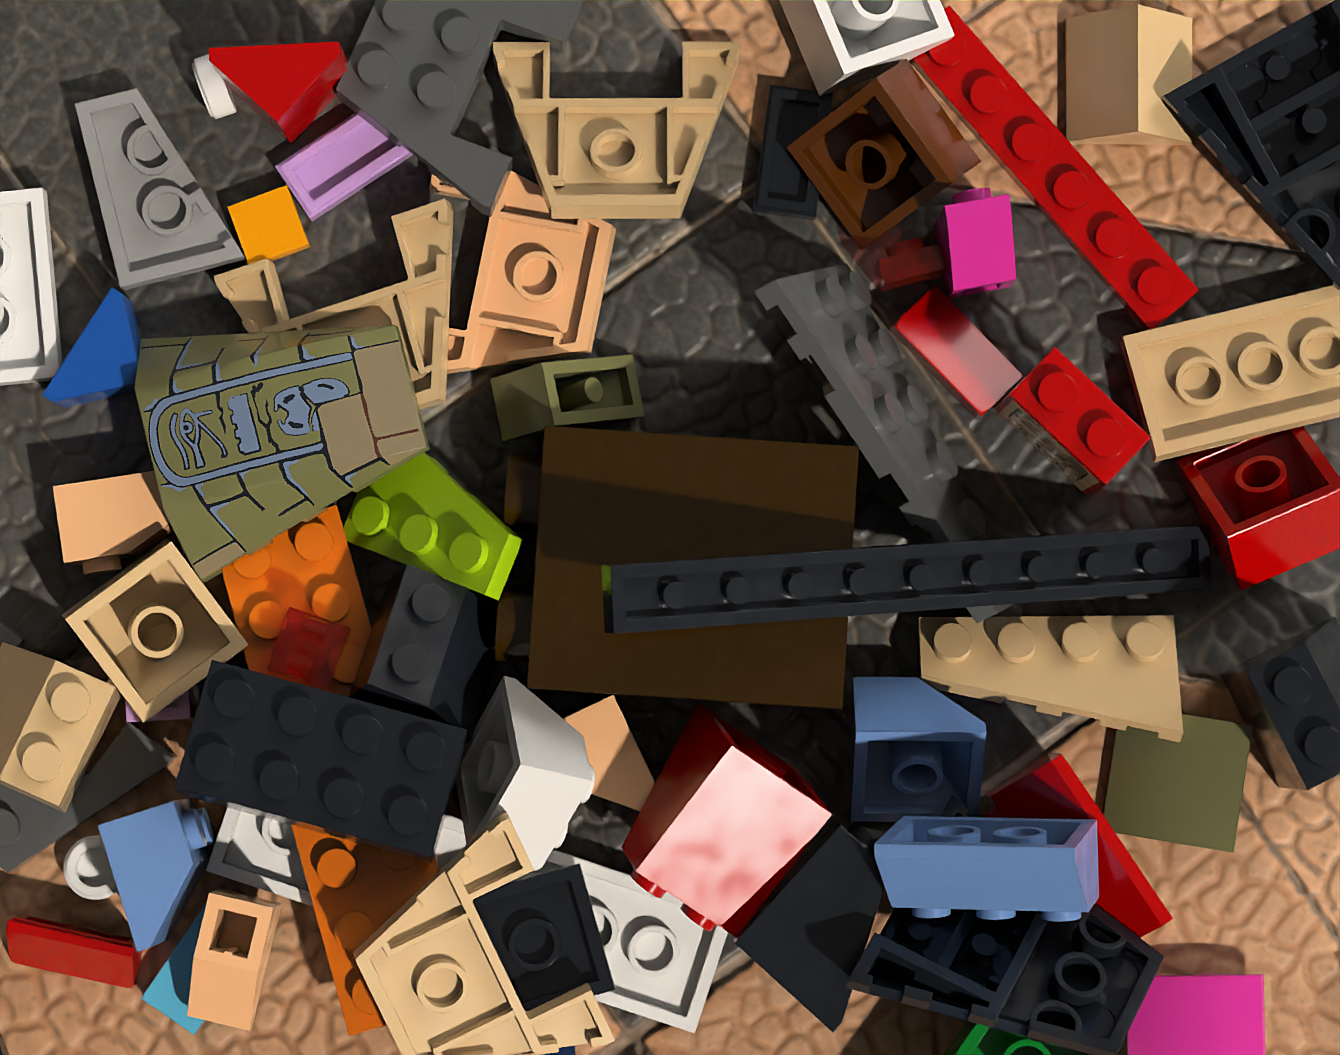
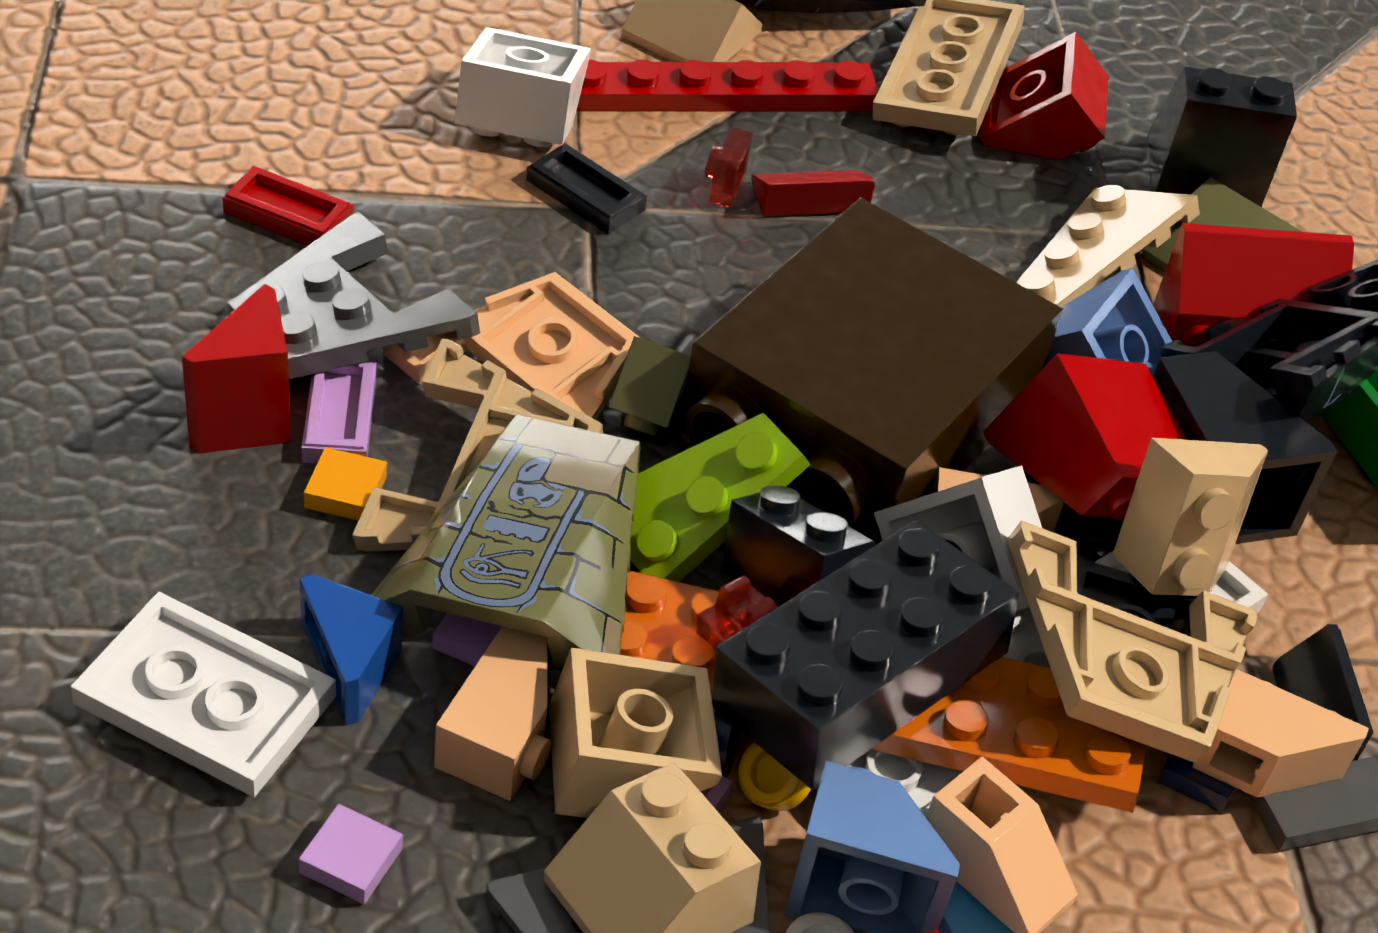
camera: 60 degrees left, 40 degrees down
(148, 196) = (236, 539): light grey wing -> none
(213, 89) = (198, 438): white tile -> none
(616, 152) = (490, 250): tan wing -> none
(655, 941) = (1187, 513): none -> tan slope
(875, 401) = (795, 202): dark grey wing -> none
(883, 153) = (638, 127): reddish brown slope -> none
(902, 578) = (972, 231): black plate -> none
(976, 243) = (749, 102): dark pink slope -> none
(990, 866) = (1259, 282): medium blue slope -> none
(1072, 422) = (924, 126): red brick -> none

